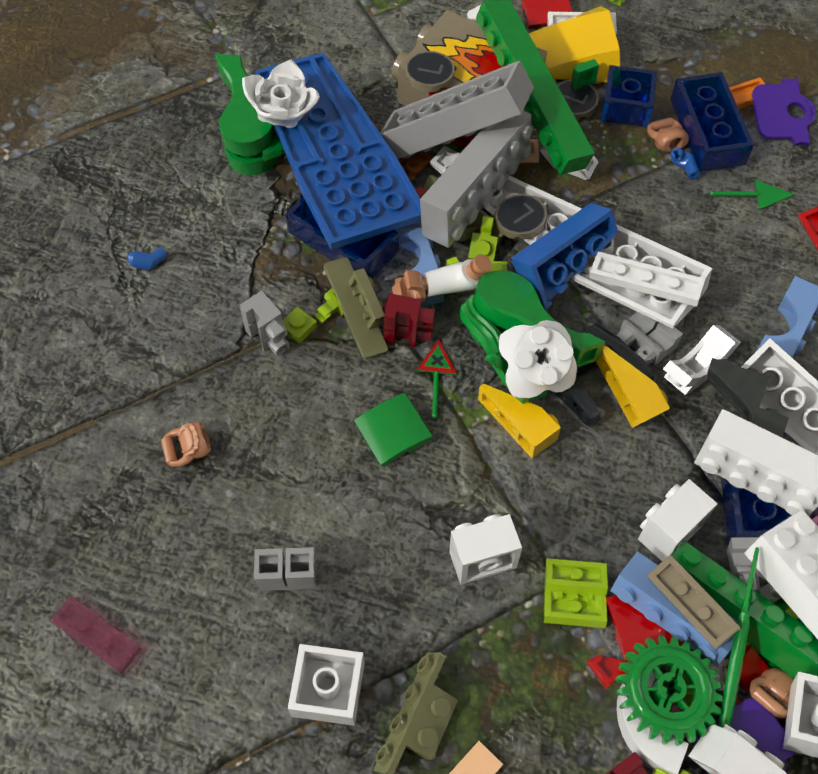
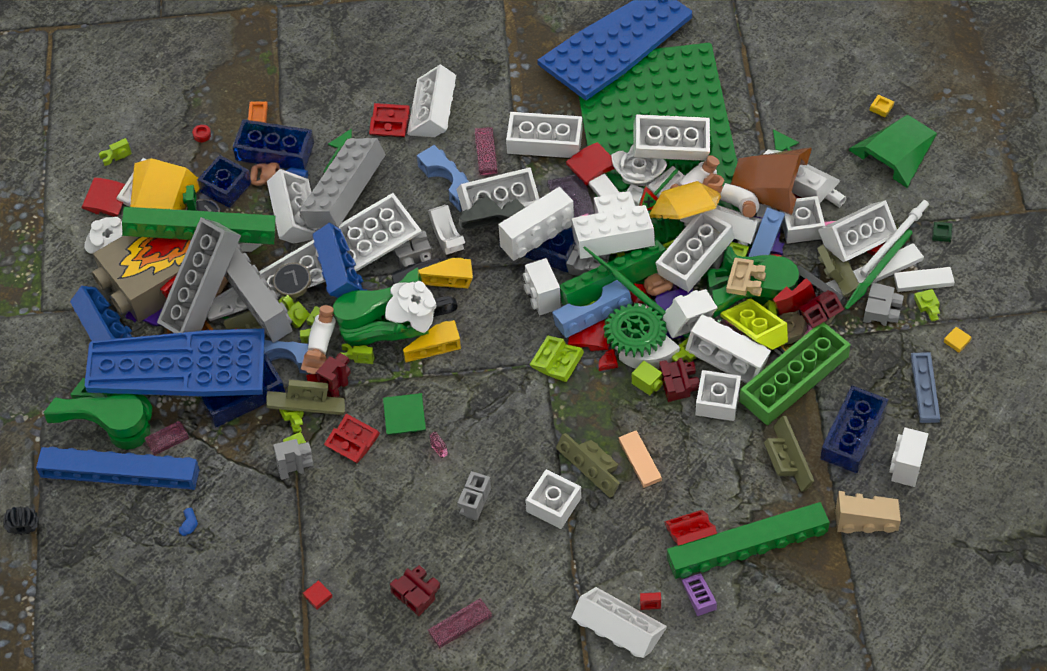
camera: 65 degrees left, 5 degrees down
(88, 101) = (20, 520): none -> black gear
(89, 438) = (317, 595): none -> red tile
(121, 554) = (414, 591): none -> dark red hips
(193, 164) = (118, 468): none -> blue brick
(193, 441) = (353, 530): nougat piece -> none
(255, 191) = (166, 438): none -> clear pink tile
(282, 96) = (128, 375): white brick -> none
(332, 383) = (352, 438): none -> red slope
(361, 490) = (438, 444): none -> clear pink tile
(372, 71) = (96, 316): none -> blue wedge
(429, 71) = (150, 281): black tile -> none
(437, 363) = (368, 375): piece -> none
(460, 341) = (360, 354): none -> lime plate
(484, 548) = (511, 389): white brick -> none
(602, 744) = (647, 378): none -> lime brick
(638, 179) = (287, 197): none -> white slope
(647, 278) = (383, 229): white plate -> none
(687, 53) = (201, 133): none -> red tile
(693, 602) = (596, 294): dark tan plate -> none
(697, 210) = (342, 182): none -> light grey brick
(771, 112) = (288, 111): dark purple piece -> none

